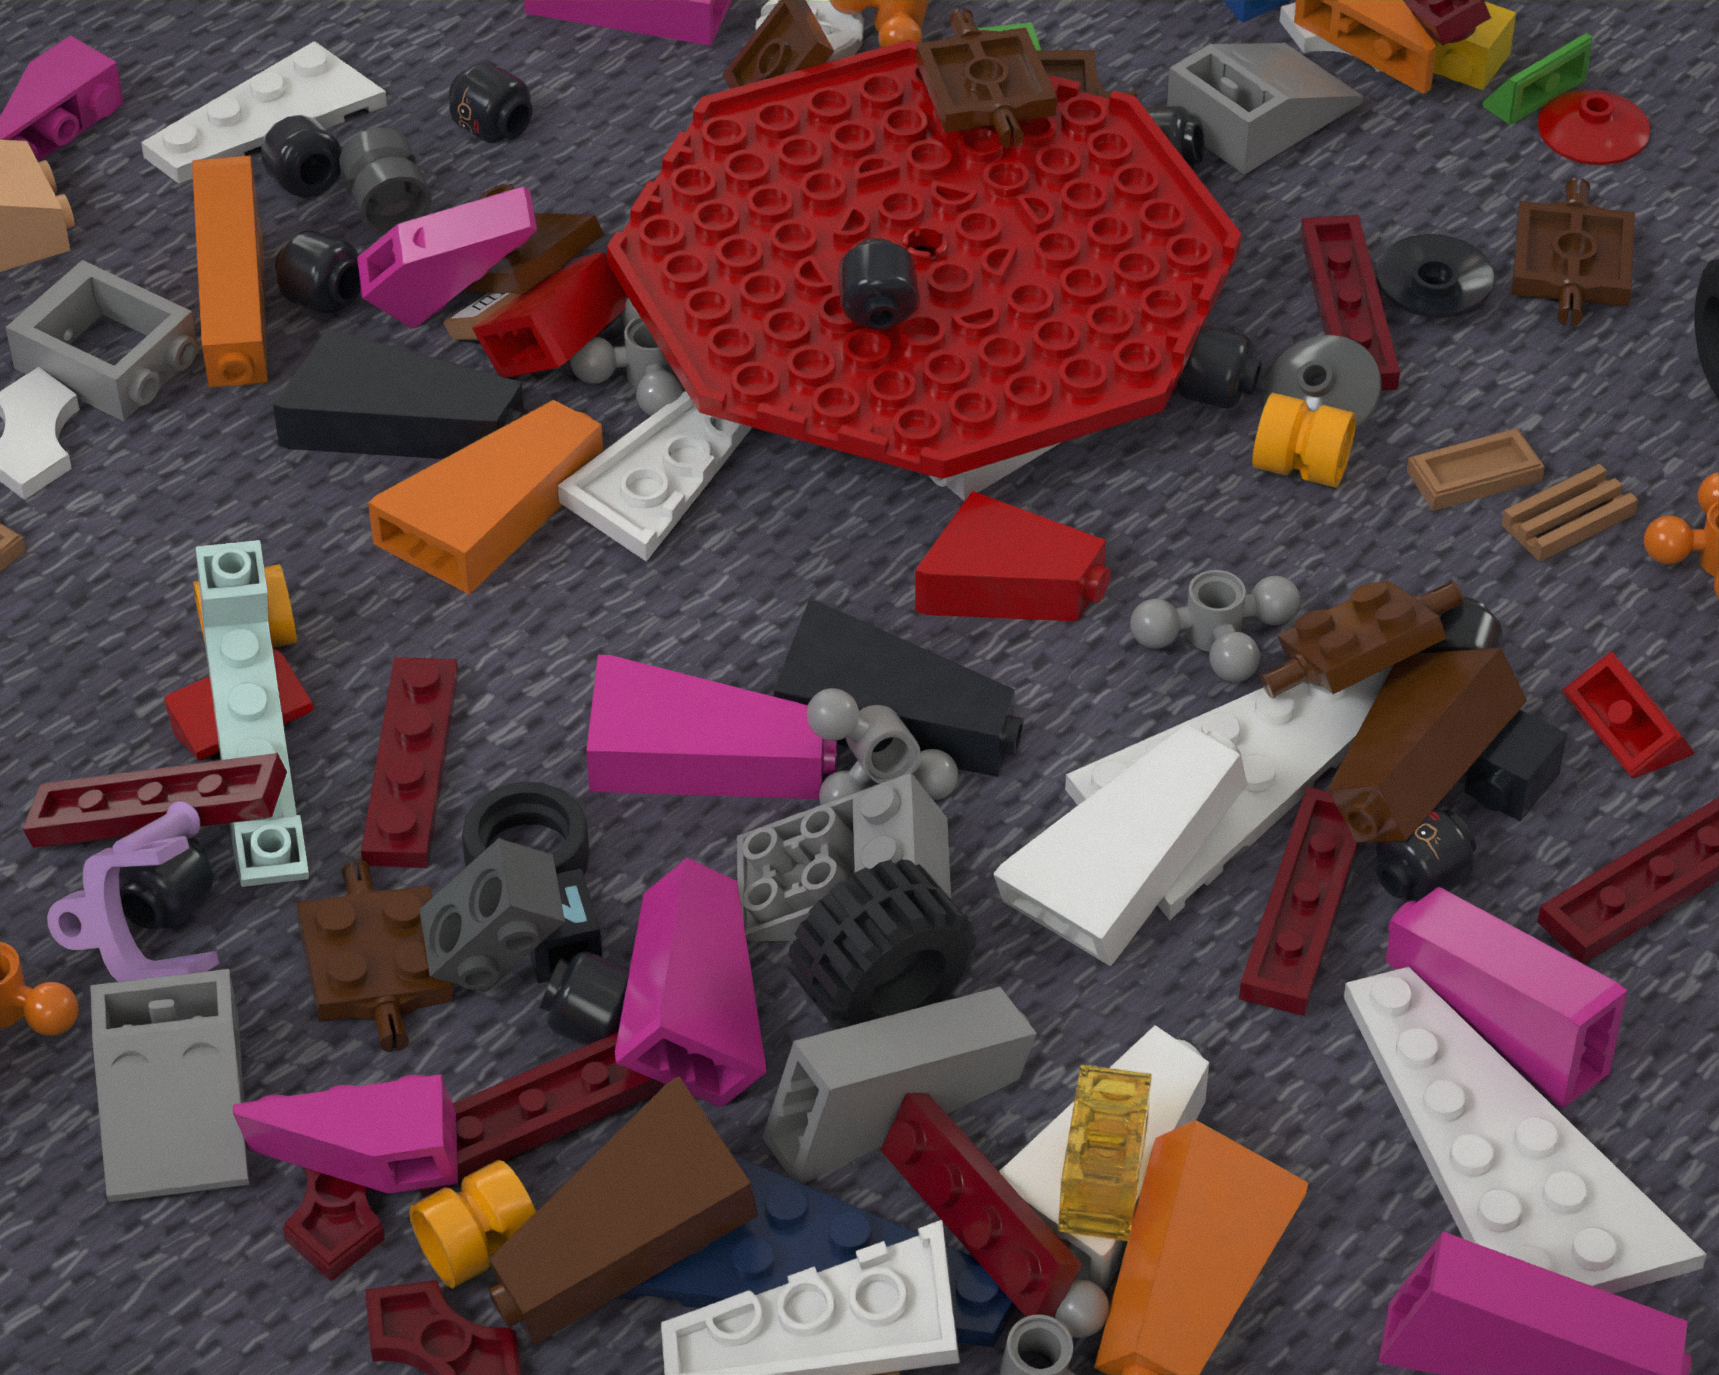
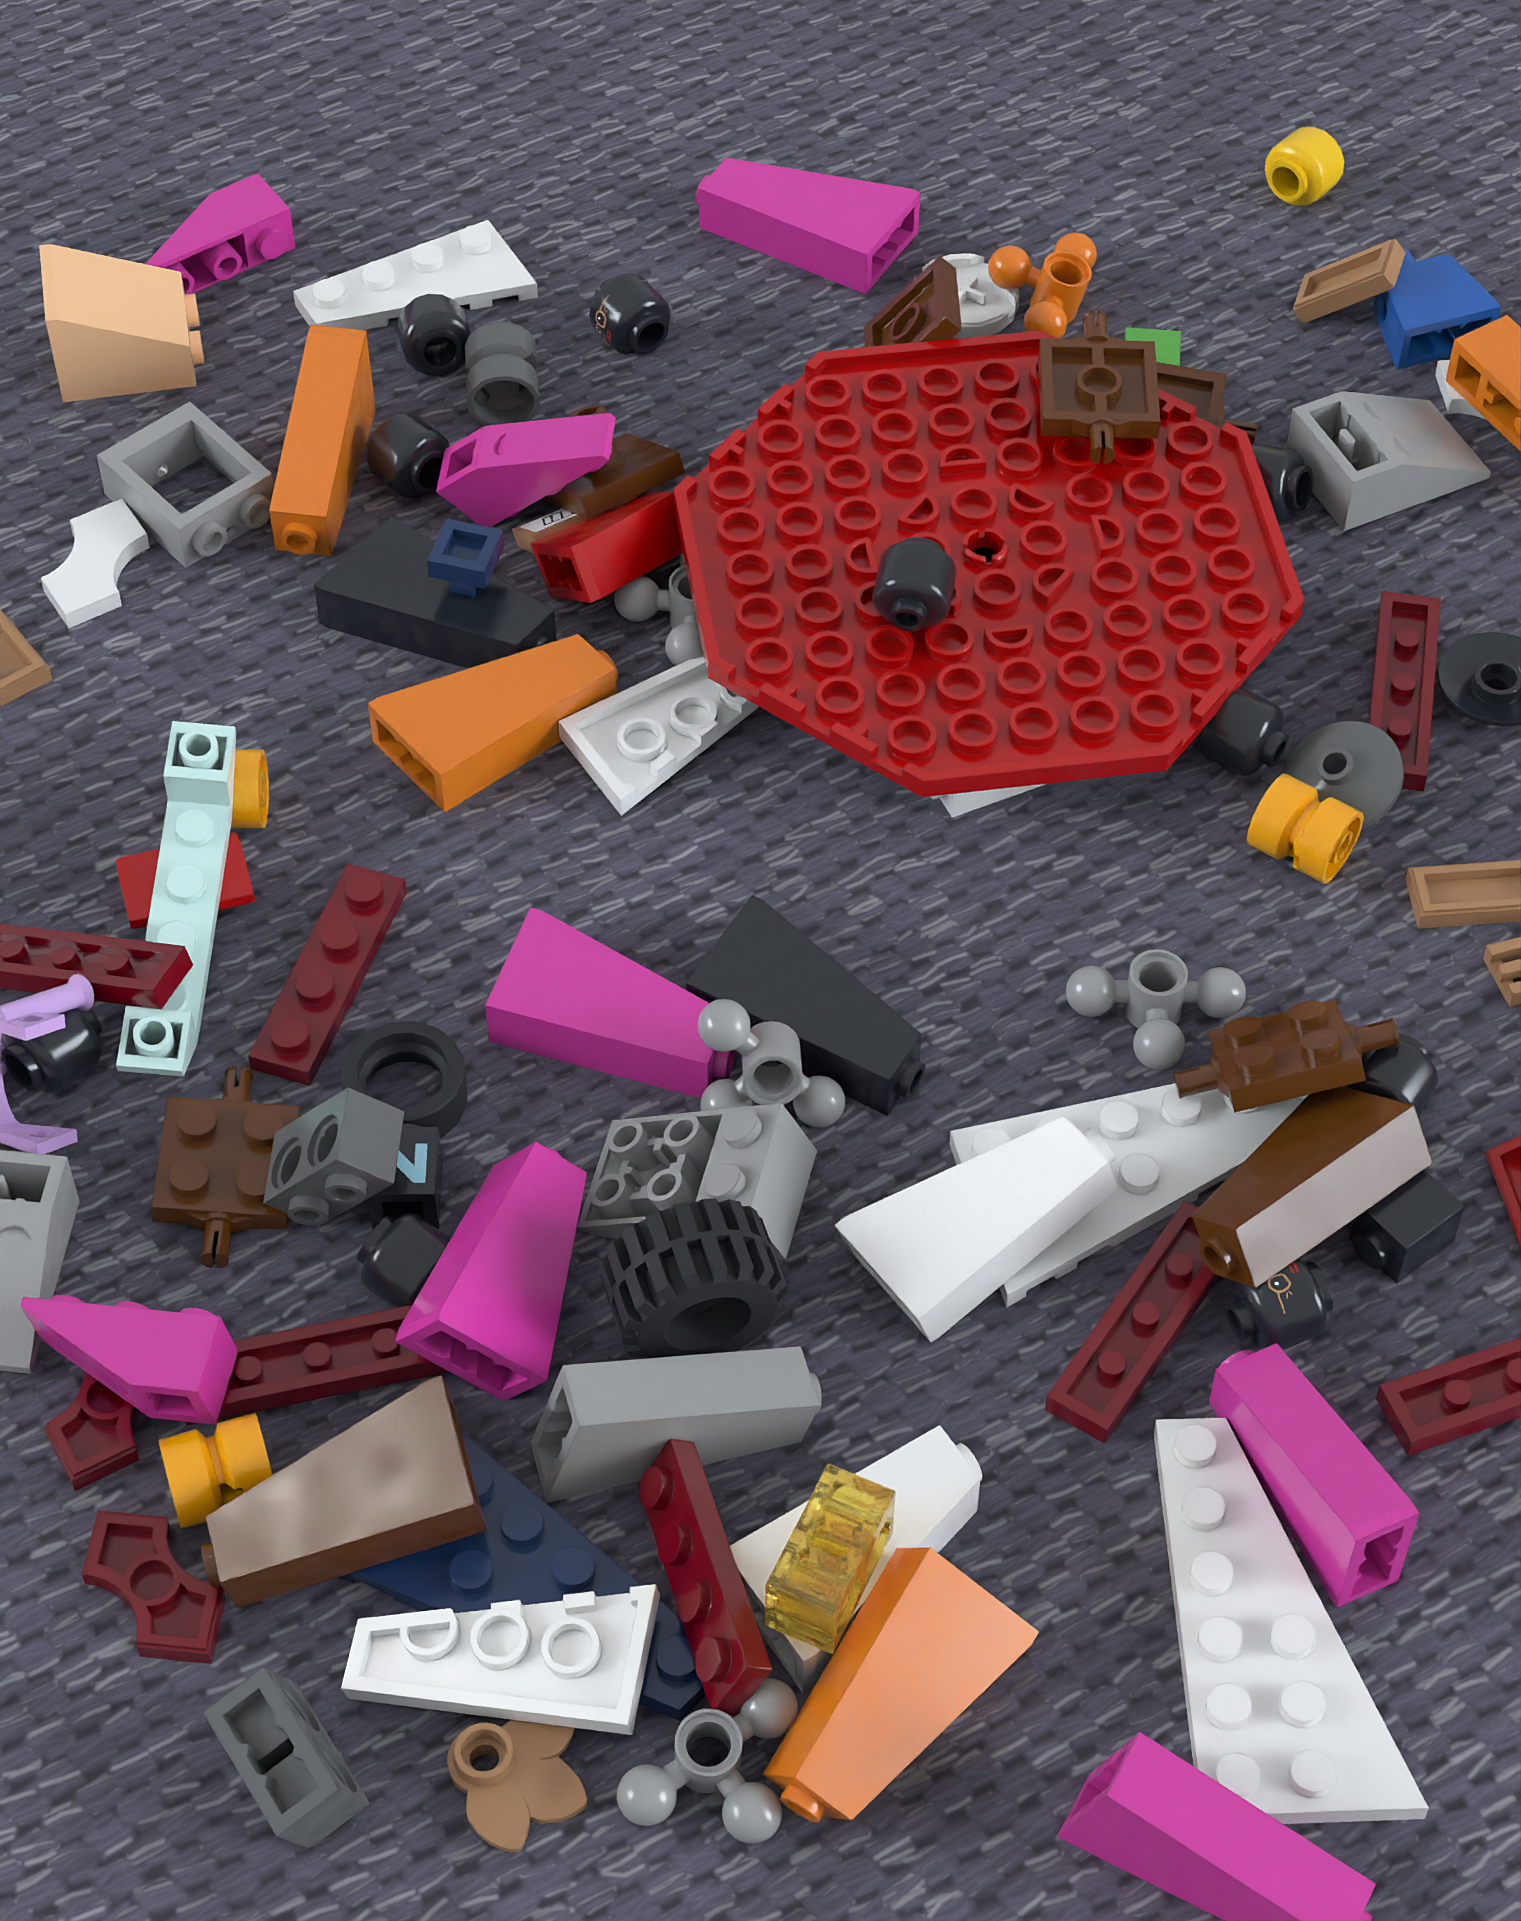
camera: 15 degrees right, 5 degrees up
(423, 346) = (465, 556): none -> dark blue tile
(1010, 566) = (966, 898): red slope -> none

